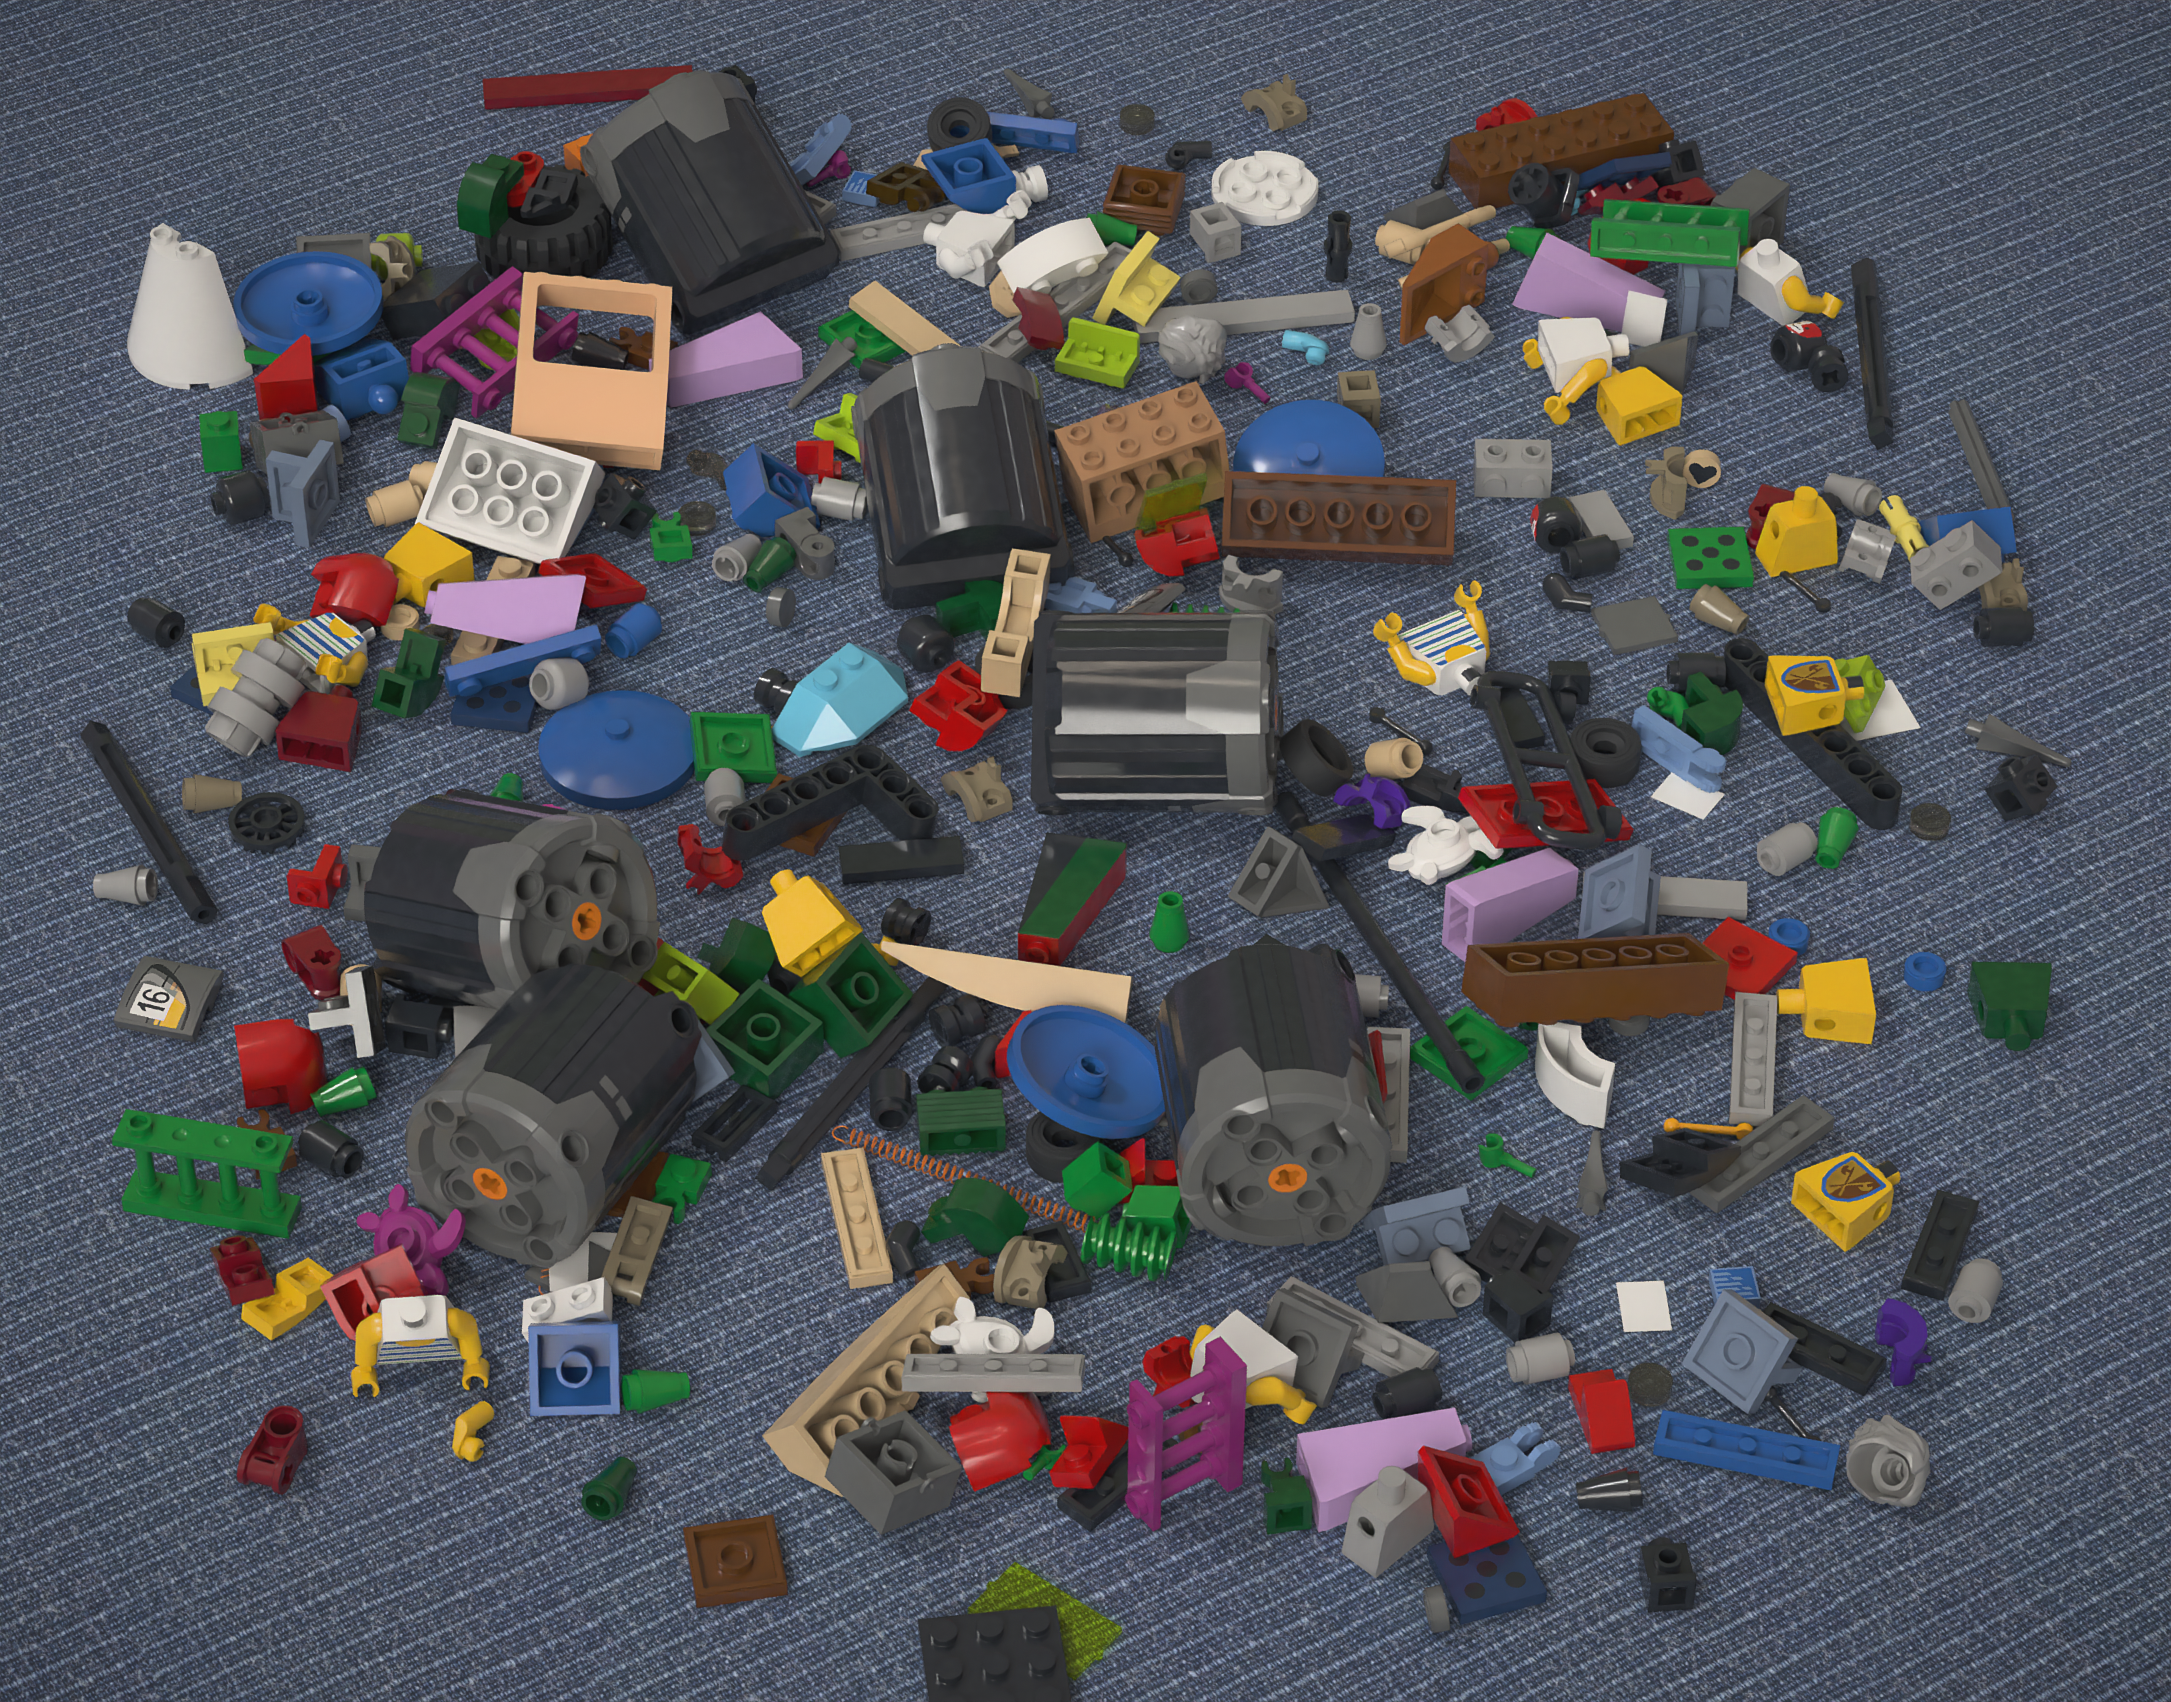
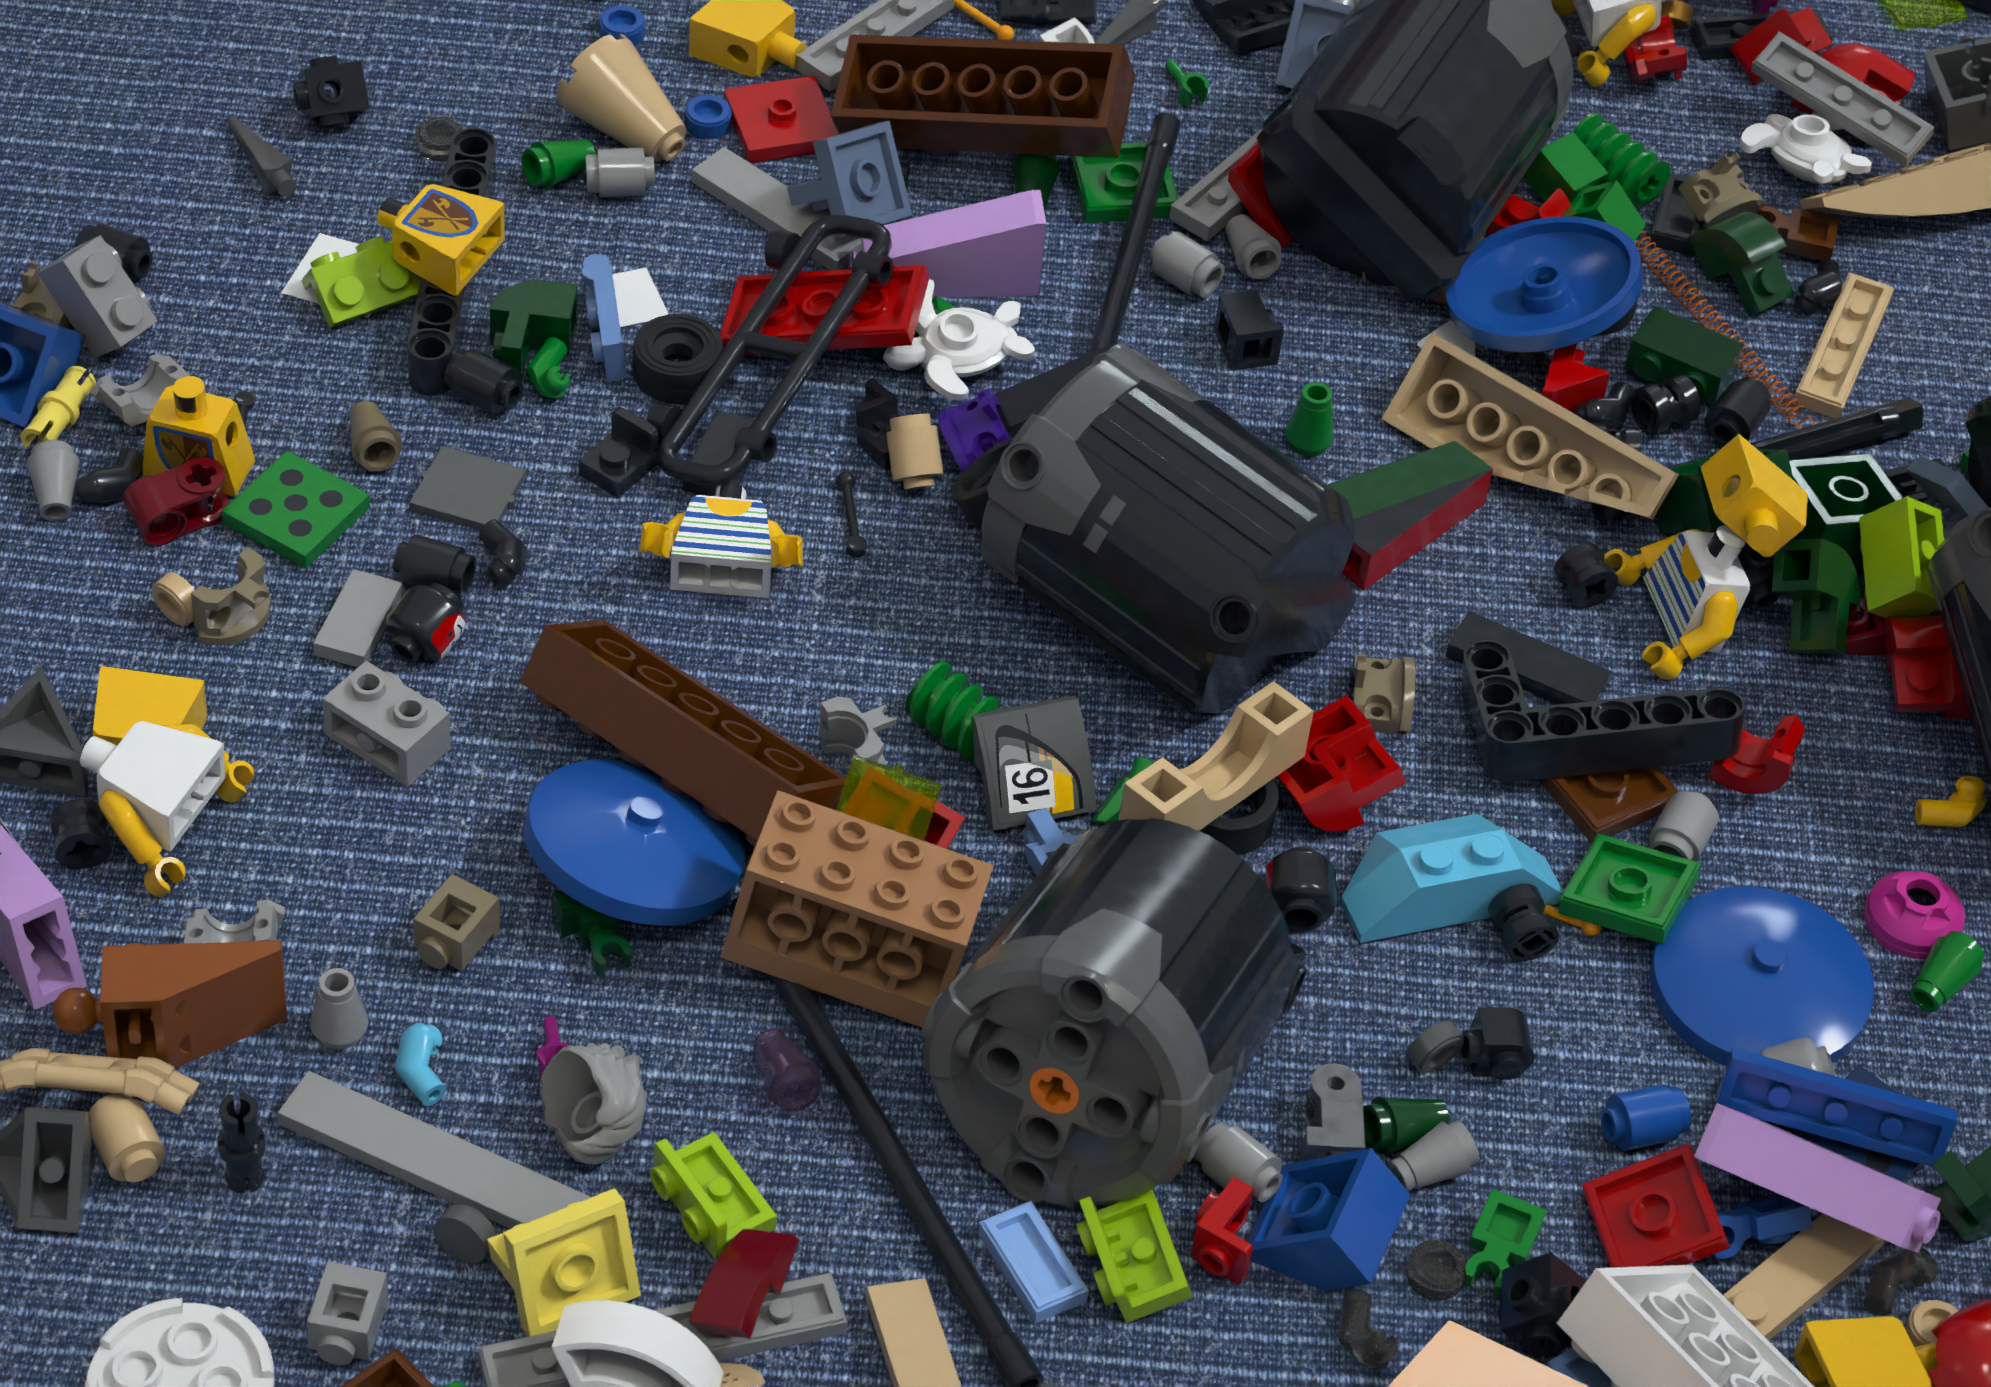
camera: 150 degrees left, 5 degrees up
(746, 624) = (1498, 1043): none -> black plate
(1835, 883) = (622, 99): none -> tan cone

